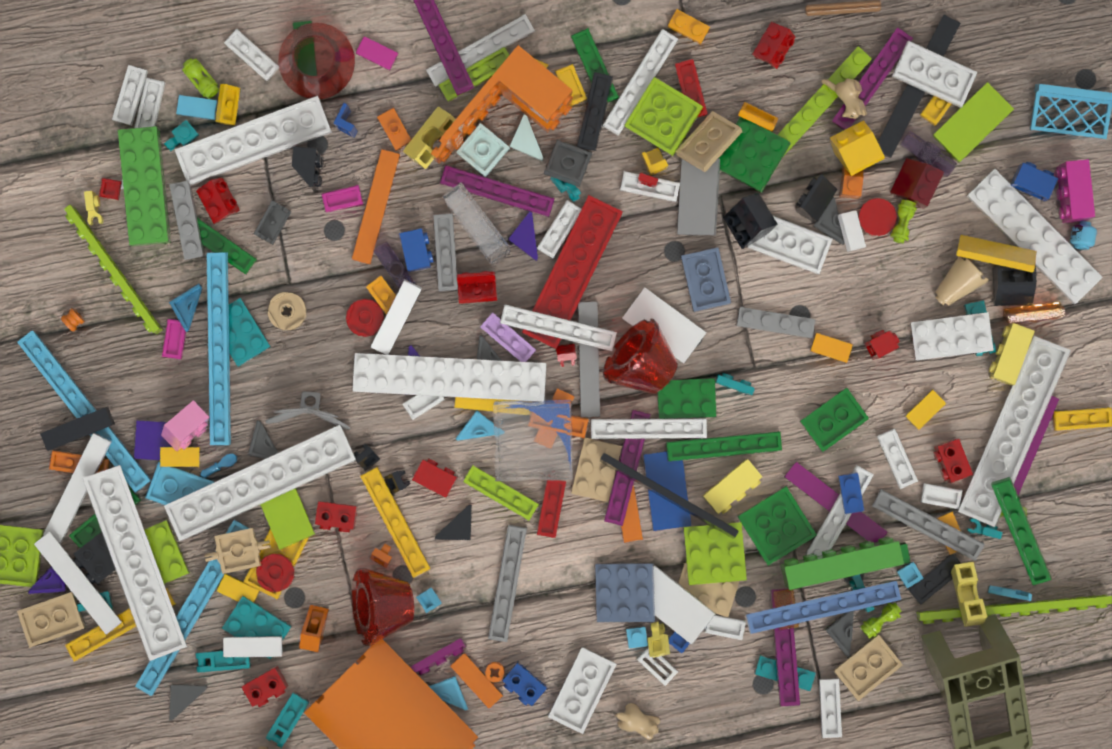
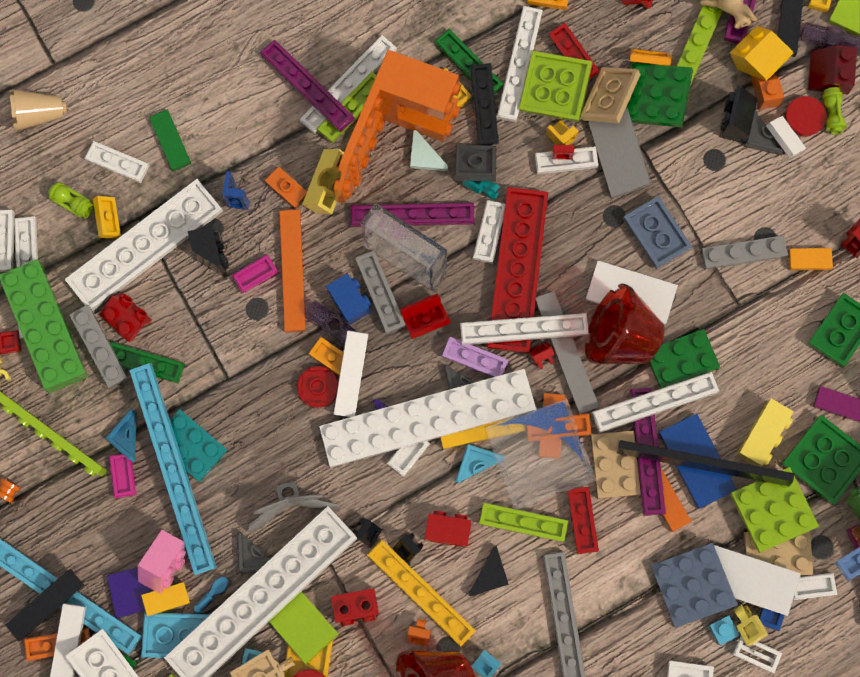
camera: 15 degrees left, 10 degrees down
(183, 134) = (68, 263): teal plate -> none
(197, 107) = (75, 231): medium azure tile -> none
(272, 222) = (189, 320): dark grey hinge -> none
(277, 306) = (235, 418): tan plate -> none
(331, 81) = (197, 164): clear red cone -> none
(376, 53) = (244, 120): dark pink tile -> none
(483, 150) = (384, 178): light aqua plate -> none
(524, 237) = (458, 251): dark purple tile -> none
(724, 446) = (739, 395): green tile -> none
(742, 386) = (735, 327): teal plate -> none
(750, 220) = (680, 158): black slope -> none
(794, 246) = (728, 169): white tile -> none

